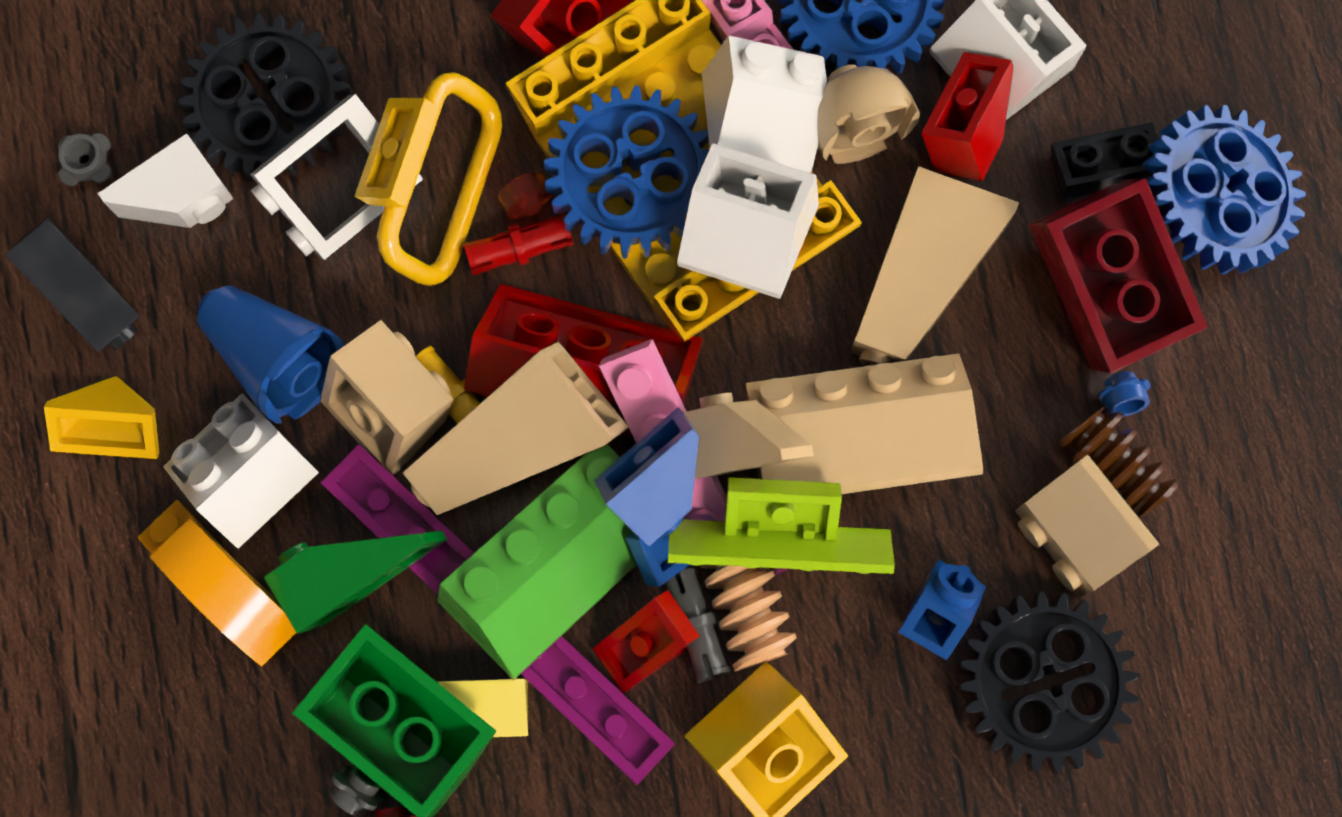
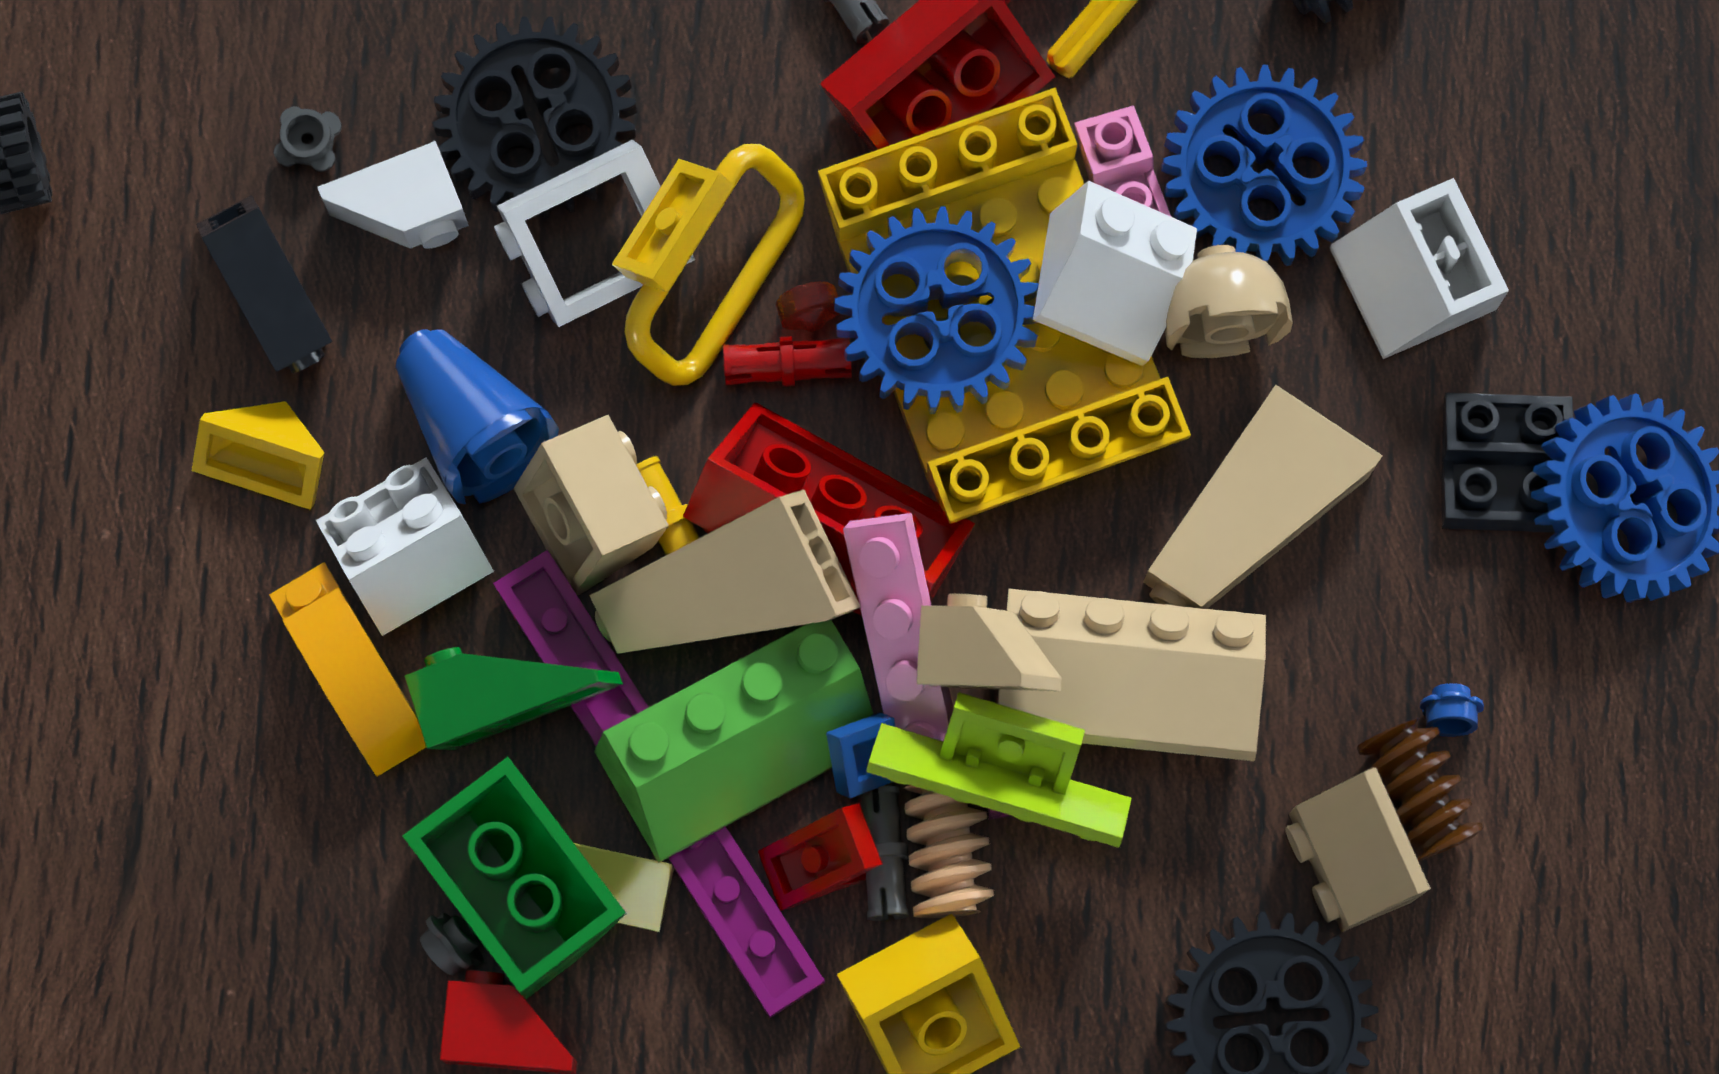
camera: 15 degrees right, 0 degrees up
(654, 479) = (873, 673): slope -> none
(747, 220) = (1054, 403): white slope -> none
(943, 608) = (1170, 903): blue brick -> none
(970, 117) = (1353, 340): red slope -> none
(1118, 275) = (1474, 569): dark red brick -> none

